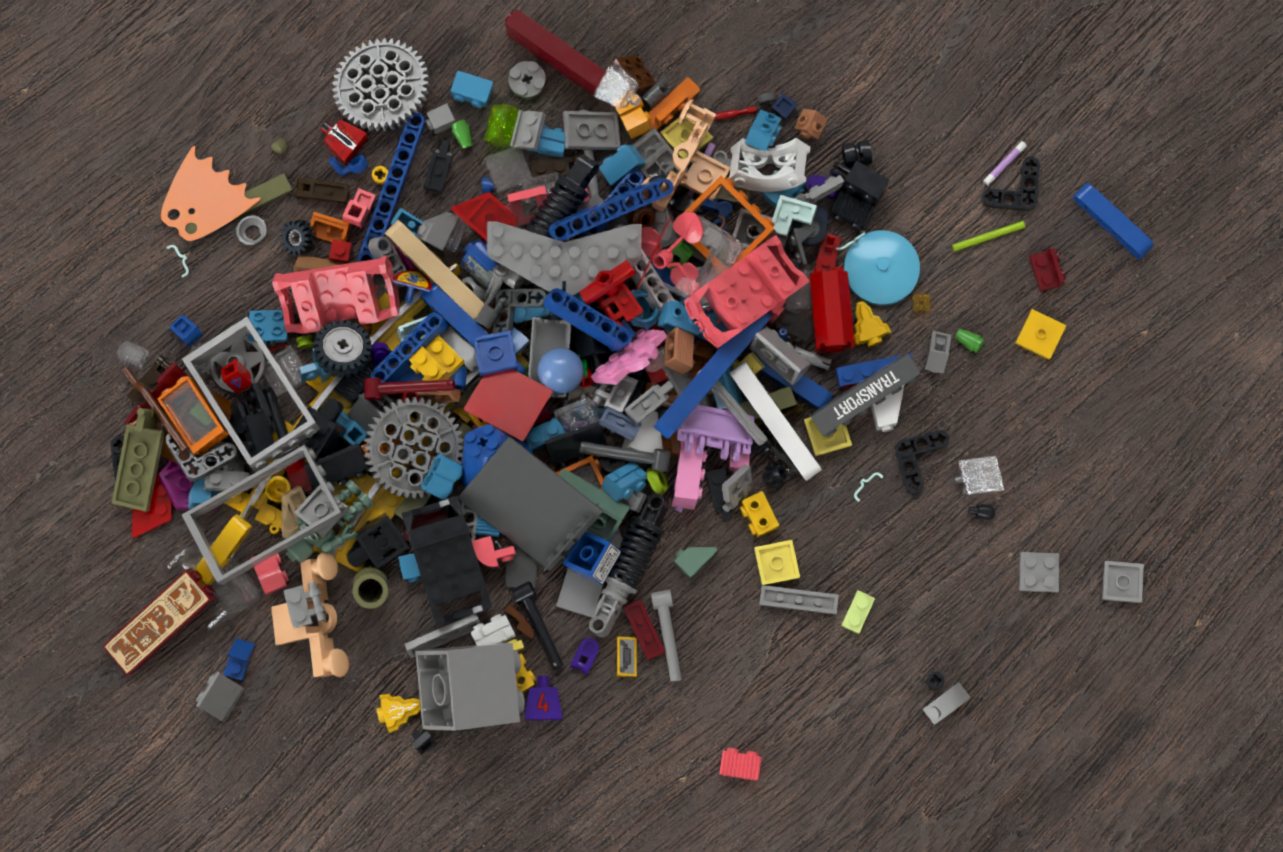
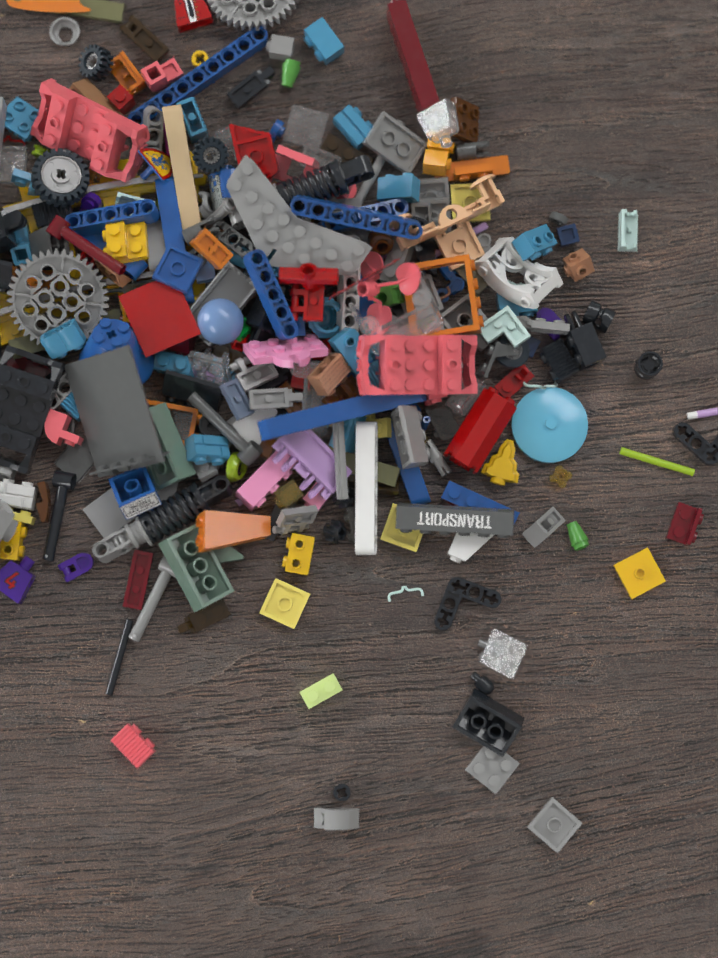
camera: 35 degrees right, 5 degrees up
(356, 165) = (187, 38): blue plate -> none
(437, 230) = (204, 128): light grey slope -> none
(461, 243) = (217, 161): none -> black bush
(501, 125) = (326, 87): clear neon green brick -> none
(511, 317) = (211, 249): none -> orange hinge
(528, 130) = (343, 106): light grey plate -> none
(529, 69) = (372, 55): light grey plate -> none
(626, 657) = (108, 591): slope -> none
(674, 703) = (119, 657): none -> black bar
(686, 583) = (196, 572): none -> sand green slope
(689, 533) = (229, 529): none -> orange slope
(716, 472) = (288, 495): none -> clear yellow brick
(720, 620) = (205, 617): none -> dark brown hinge
(734, 113) = (523, 212): red piece -> none
(798, 599) = (279, 646): light grey plate -> none
(829, 69) = (627, 231): none -> light aqua hinge
(925, 164) = (648, 365): none -> black wheel
(1010, 538) = (488, 722): none -> black slope

